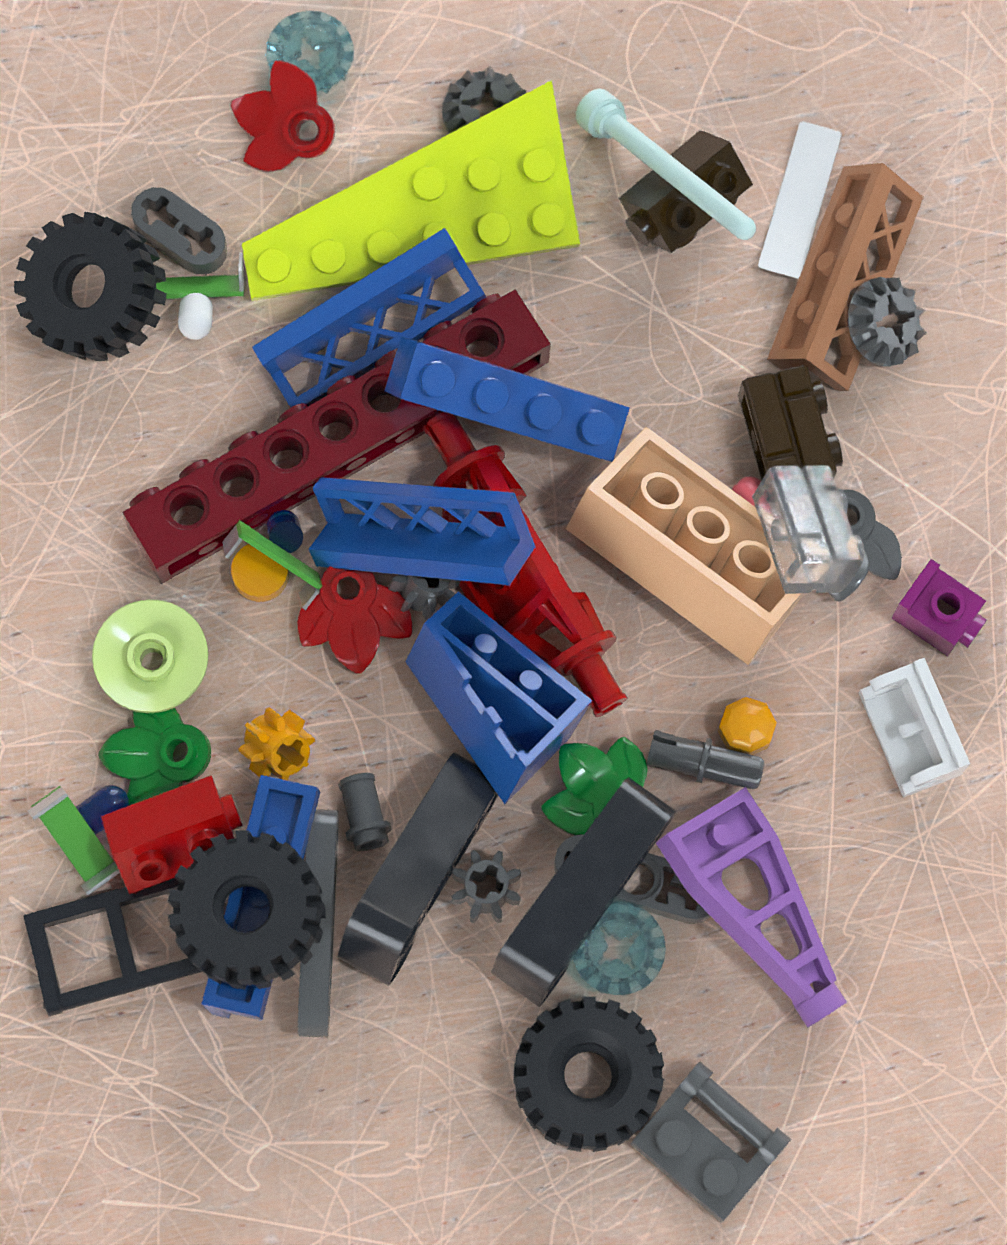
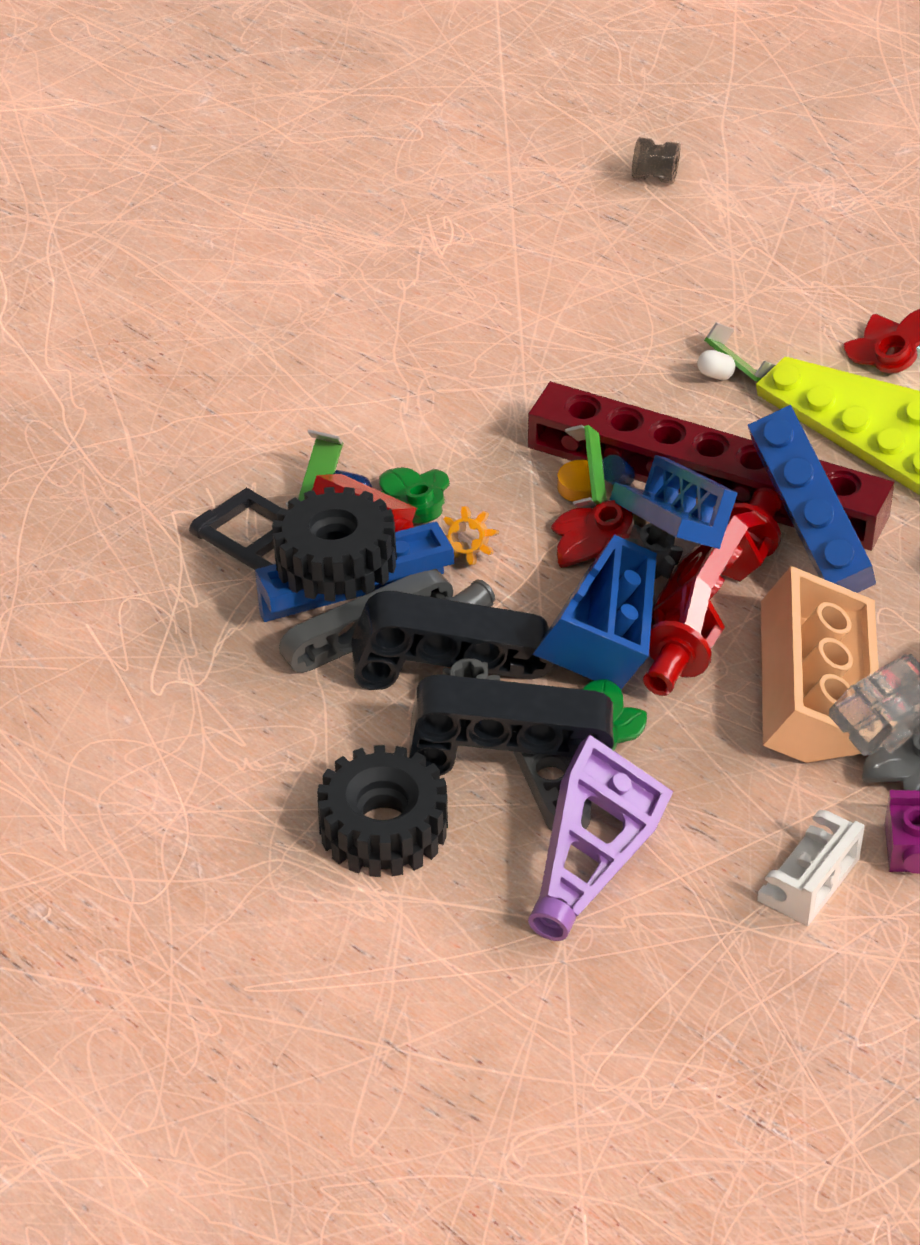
camera: 60 degrees right, 30 degrees down
(126, 295) = (681, 300): black tyre -> none
(145, 629) = (471, 451): yellowish green dish -> none
(186, 221) = (758, 336): dark grey beam -> none
(361, 303) = (827, 424): blue fence -> none
(647, 951) = (478, 774): clear light blue gear -> none
(699, 1158) = (376, 913): dark grey plate -> none
(705, 760) = (670, 761): dark grey axle -> none
(747, 726) = (719, 776): light orange tile -> none

